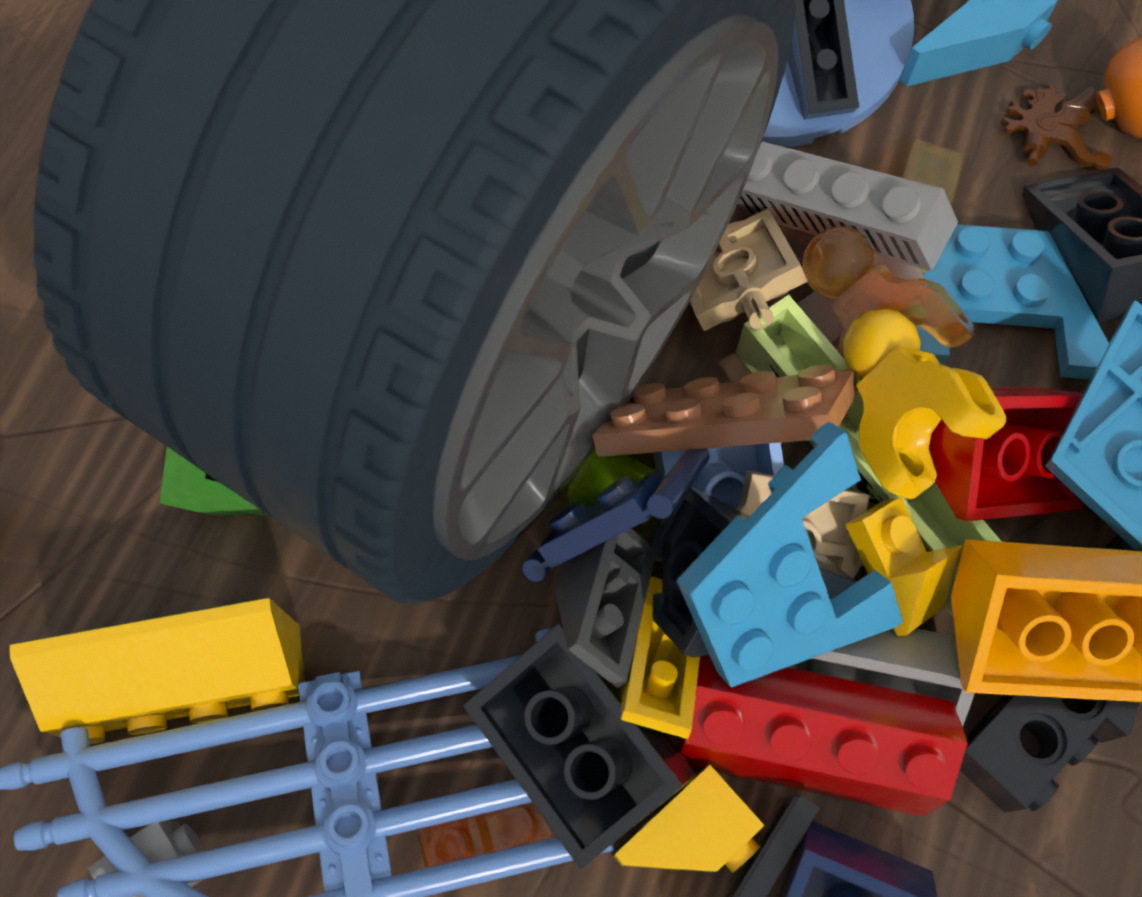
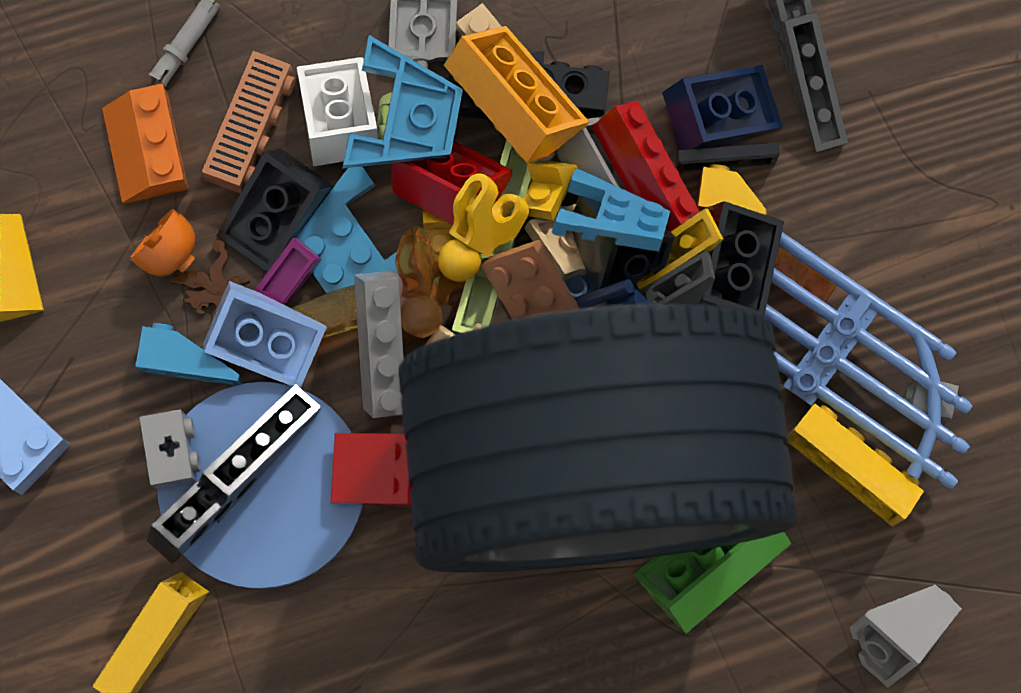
camera: 135 degrees left, 10 degrees up
(957, 106) = (263, 335): none -> light blue slope
(1009, 196) = (289, 272): none -> magenta tile

